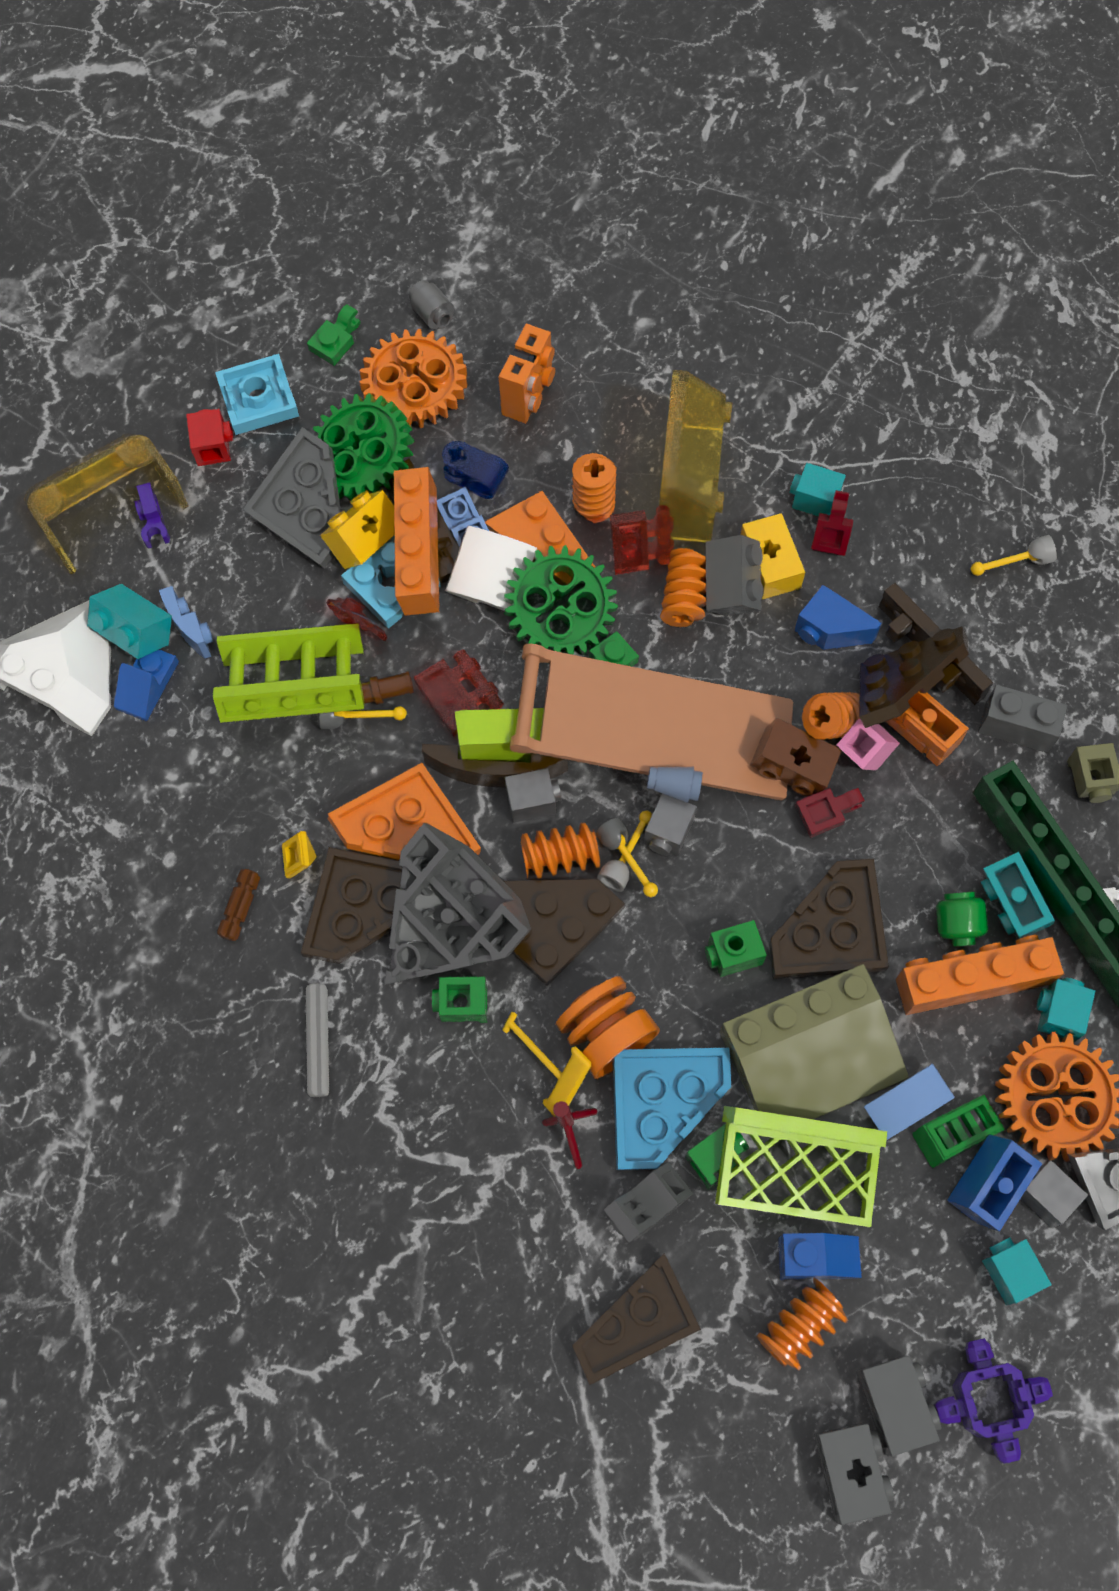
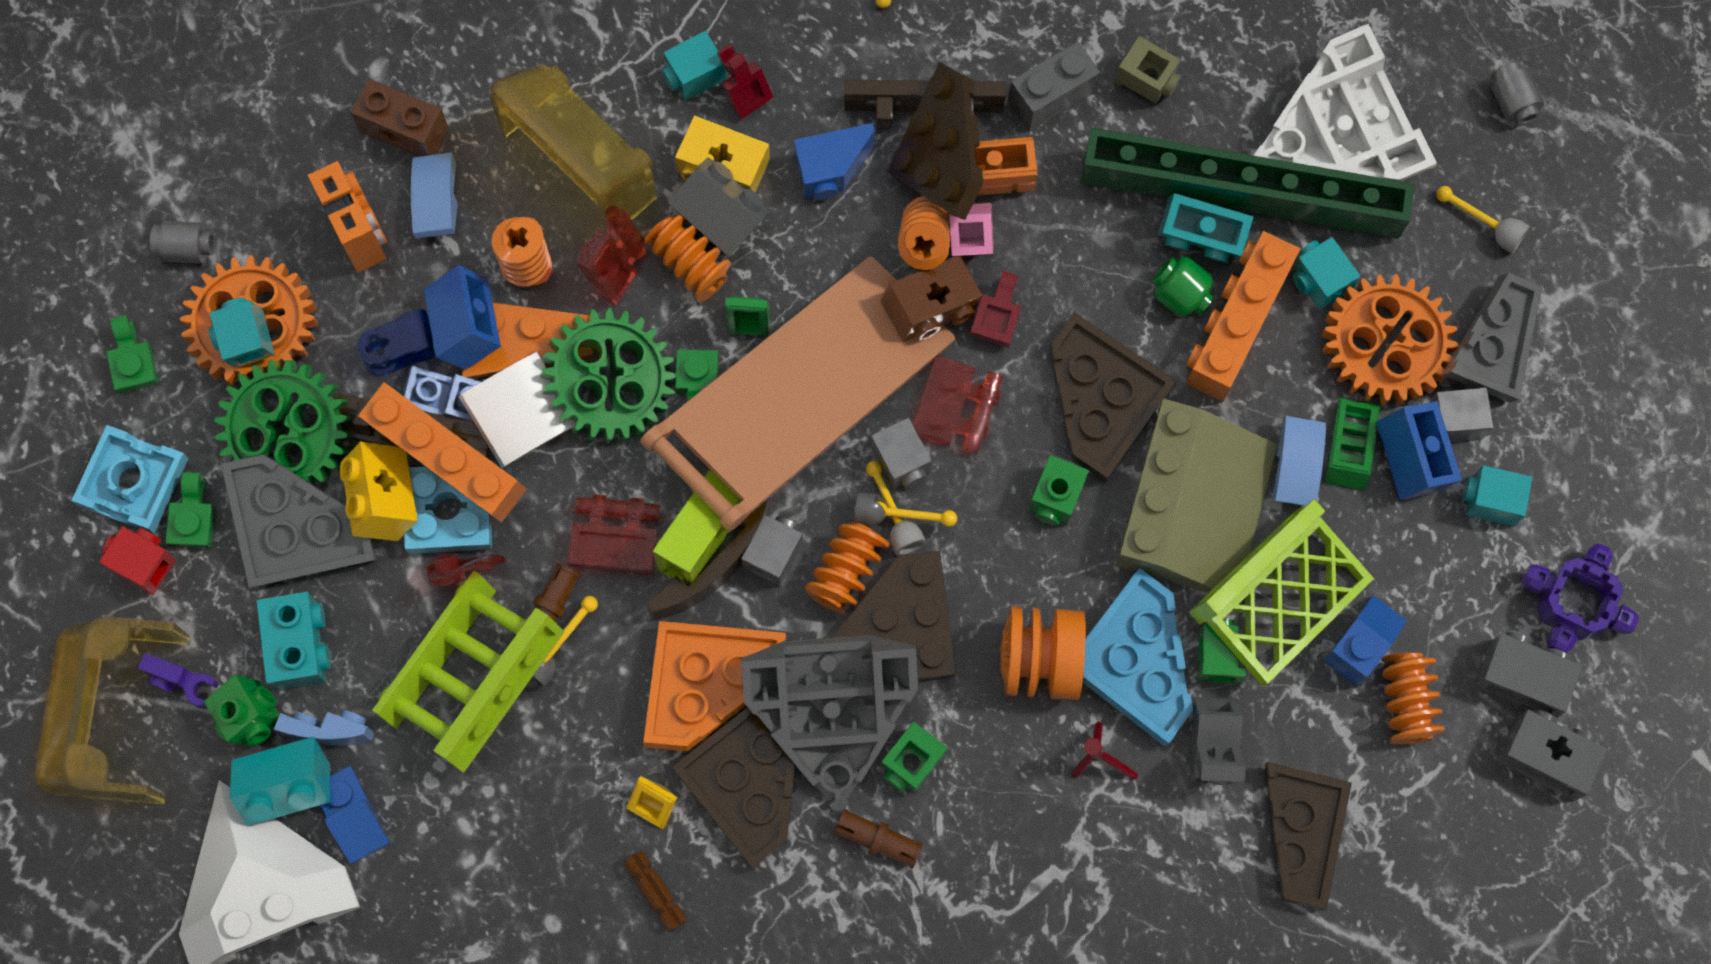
camera: 55 degrees left, 5 degrees up
(158, 565) = (243, 711): none -> green brick
(228, 560) = (293, 641): none -> teal brick
(262, 448) = (191, 521): none -> green plate
(317, 1040) = (843, 915): light grey axle -> none
(388, 1021) = (878, 838): none -> reddish brown pin
(395, 372) = (240, 332): none -> teal brick
(519, 487) = (462, 317): none -> blue brick
(568, 1080) = (1063, 726): yellow piece -> none
(586, 412) = (433, 196): none -> medium blue slope
(619, 356) = (399, 119): none -> reddish brown brick
(676, 782) = (875, 415): sand blue cone -> none
(677, 652) = (748, 316): none -> green slope
(733, 826) = (944, 399): none -> clear red plate

